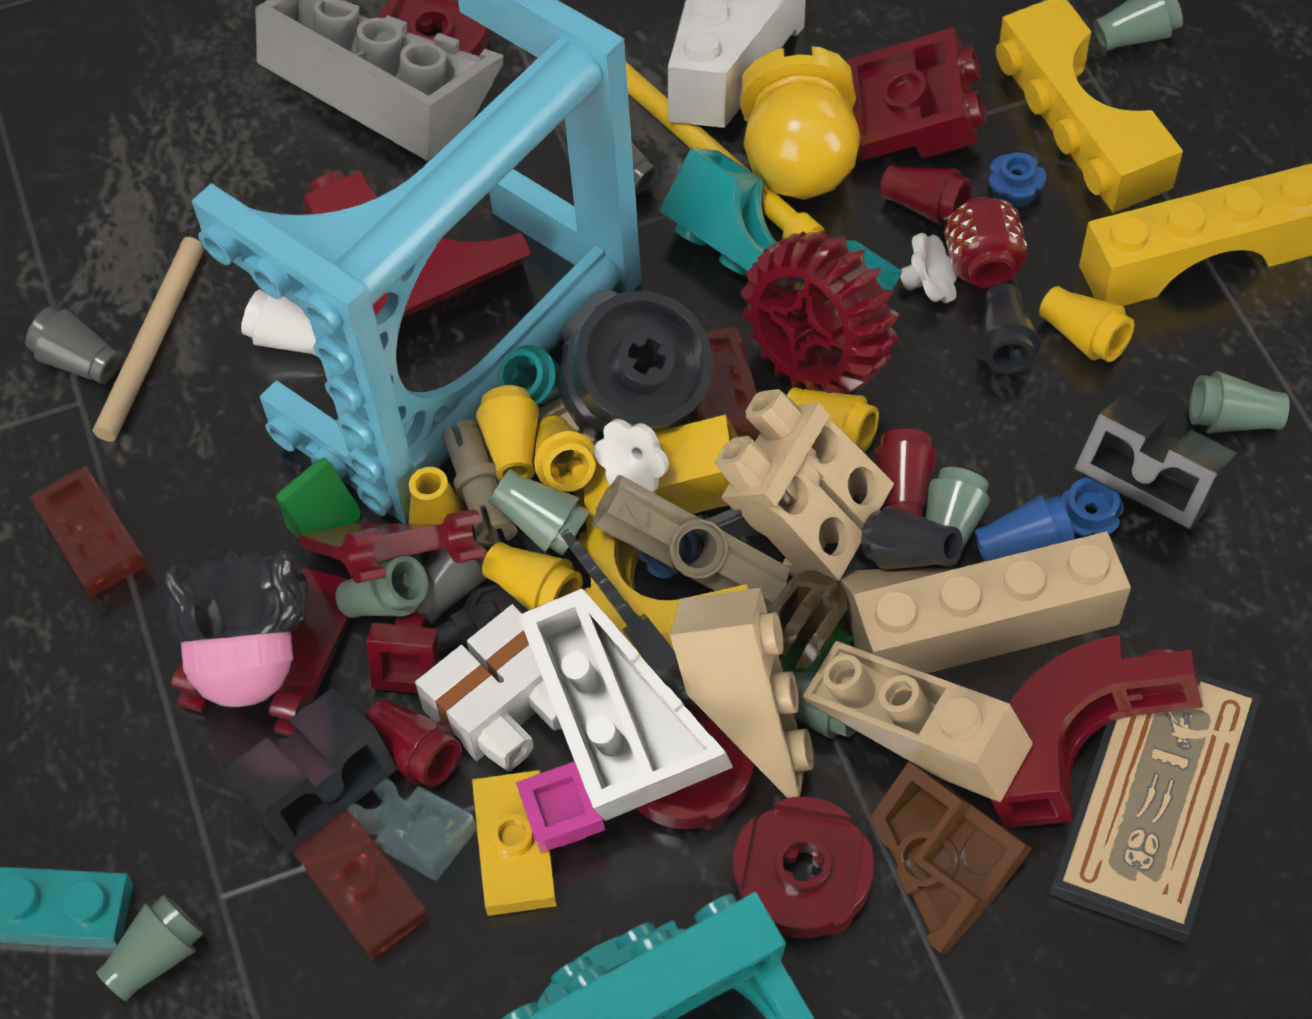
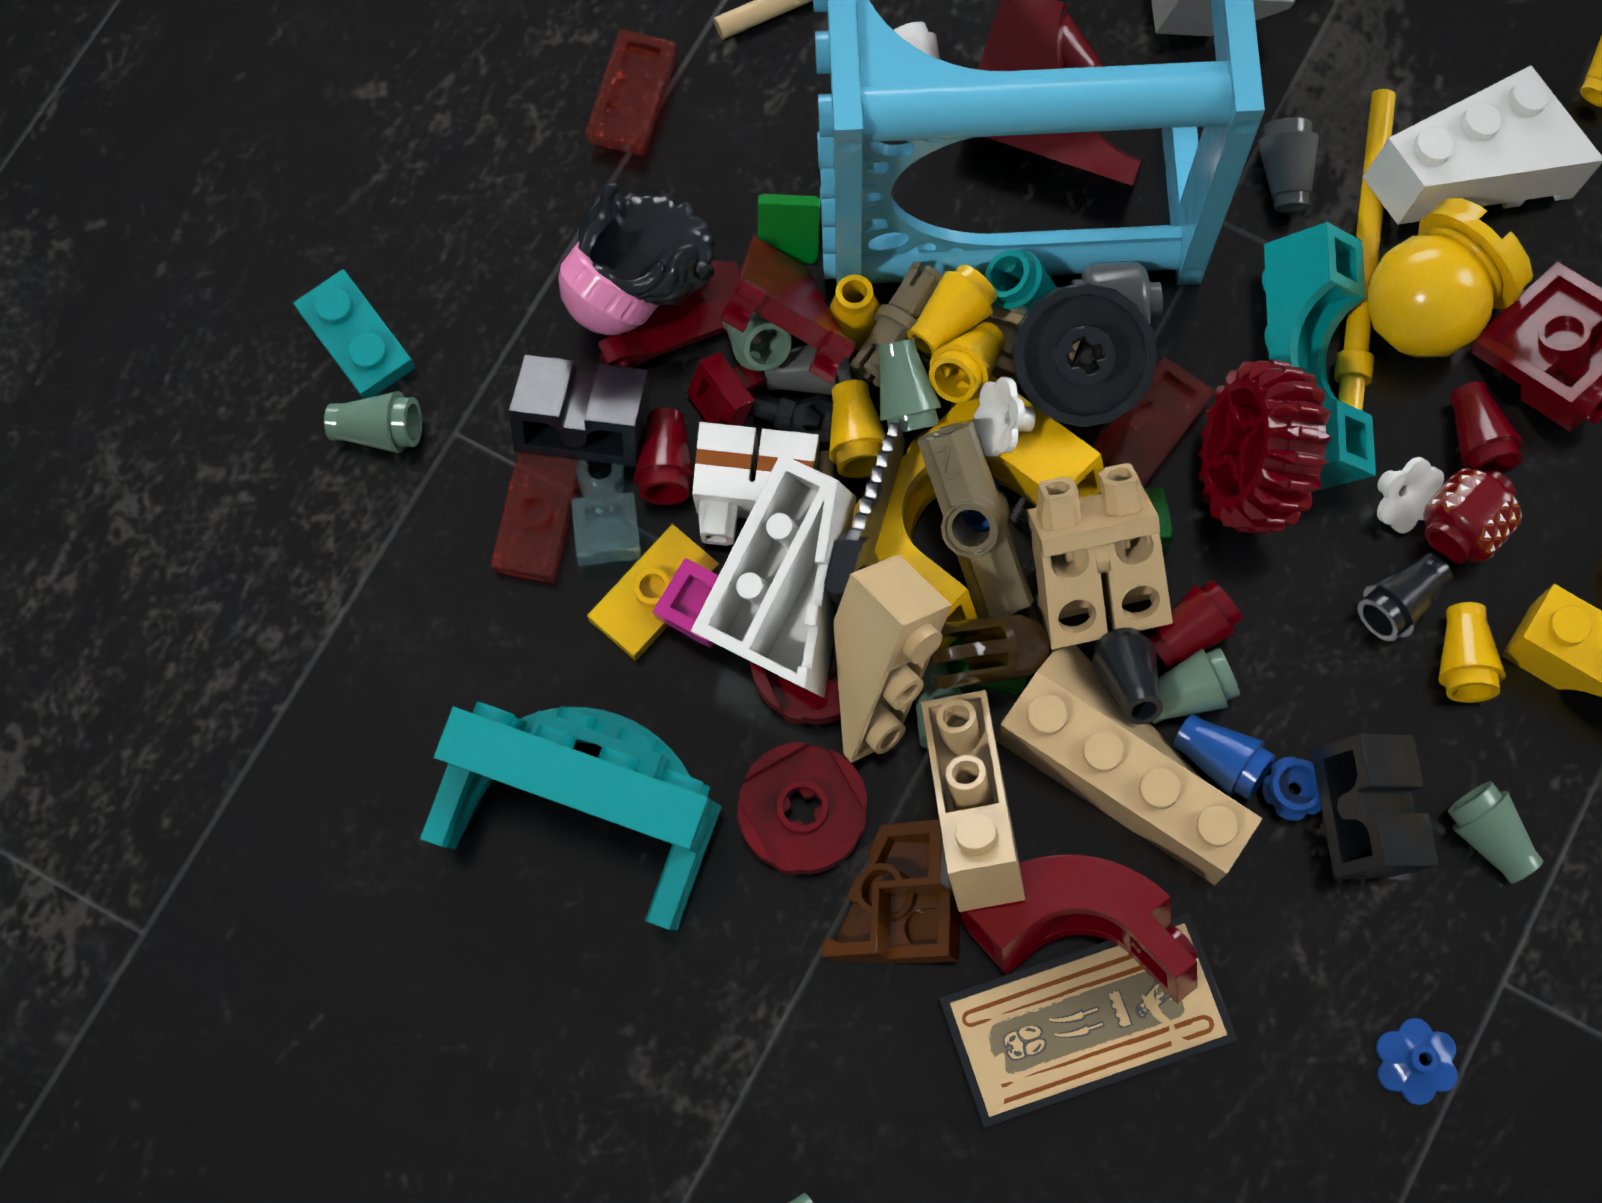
camera: 50 degrees right, 15 degrees up
(846, 411) = (1199, 538): yellow cone -> none
(1016, 178) = (1562, 503): blue plate -> none

